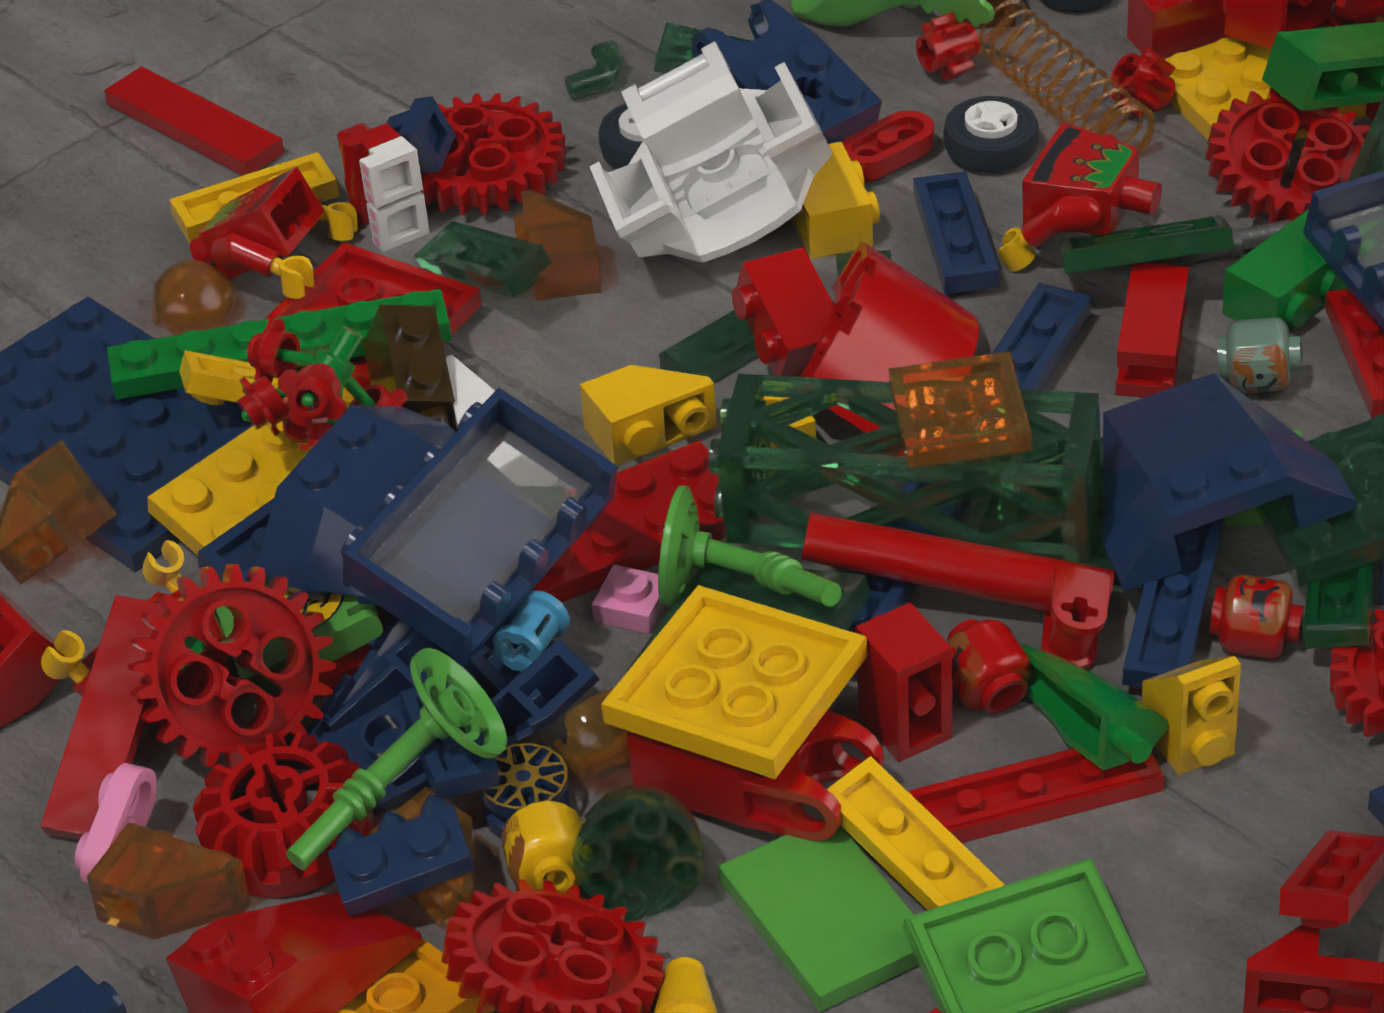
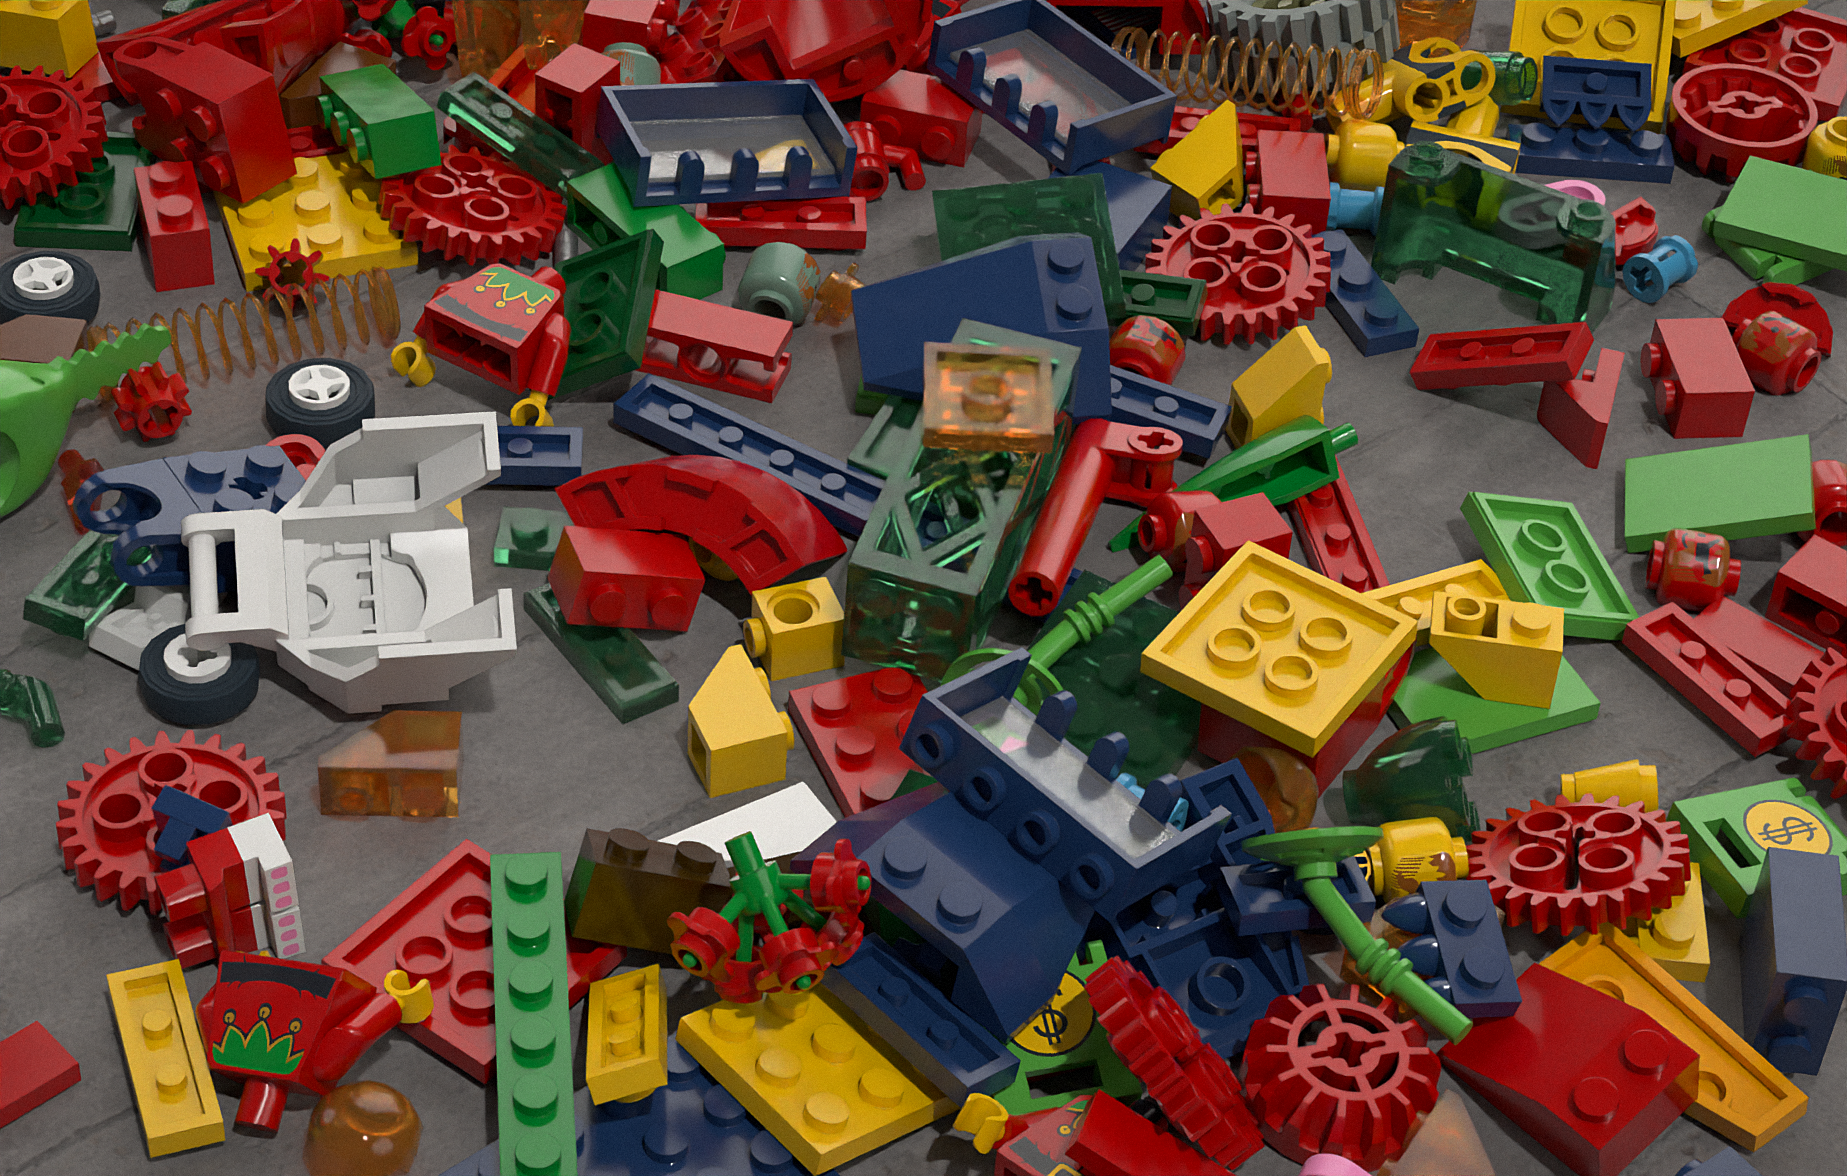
camera: 90 degrees left, 0 degrees up
(484, 259) = (424, 822): clear green plate -> none
(833, 877) = (1500, 645): none -> yellow slope
(860, 43) = (77, 471): none -> clear red bar
(1272, 395) = (836, 294): none -> clear orange plate

